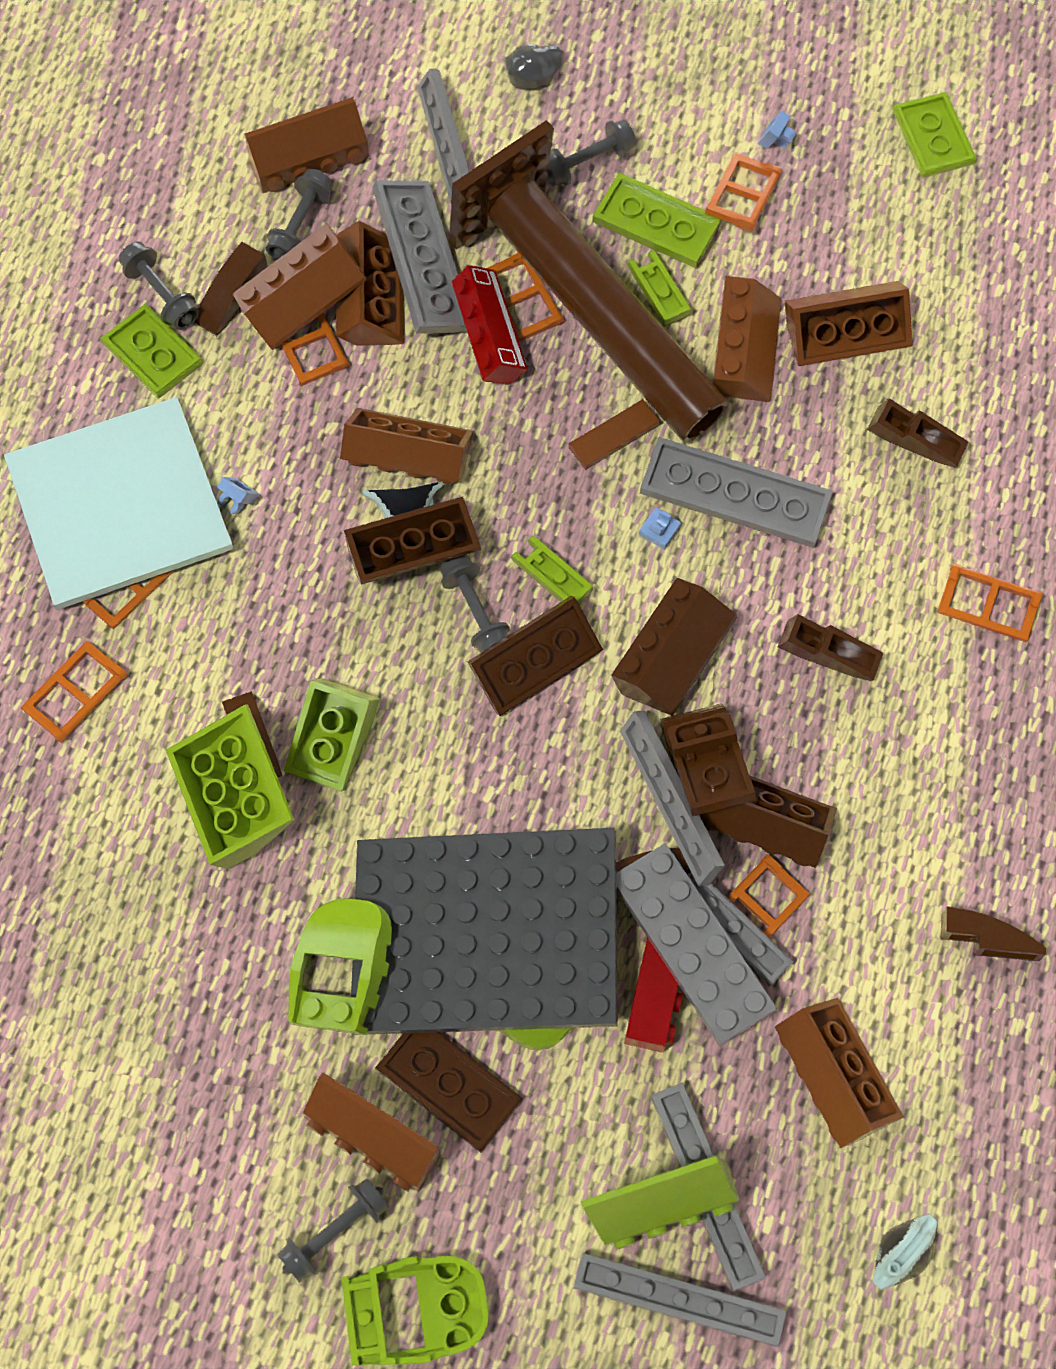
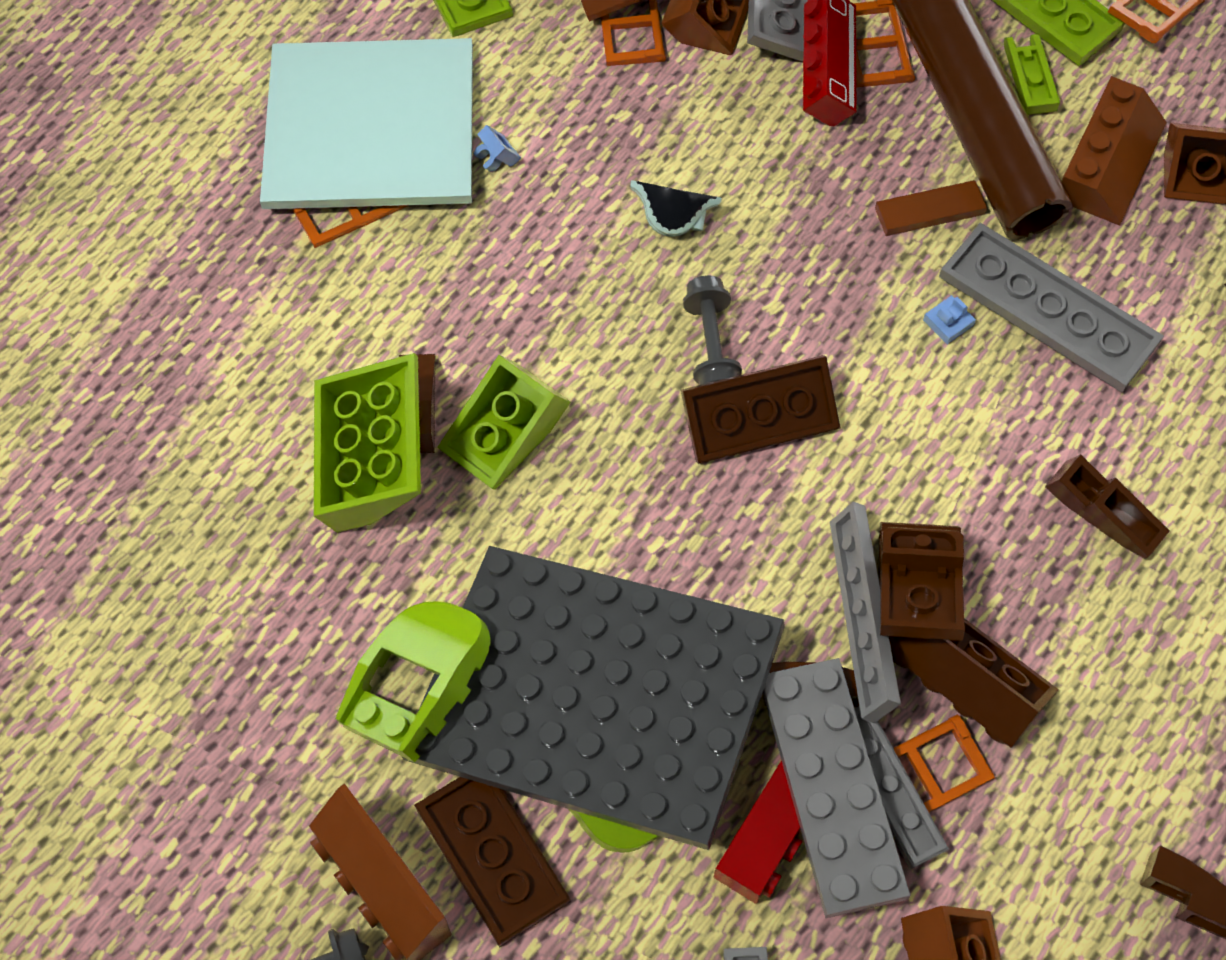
camera: 20 degrees right, 5 degrees down
(59, 678) = (258, 314): orange window -> none
(406, 445) = (695, 153): dark orange slope -> none
(411, 540) = (665, 244): reddish brown slope -> none
(553, 572) = (811, 329): lime hinge -> none
(673, 647) = (922, 447): reddish brown slope -> none

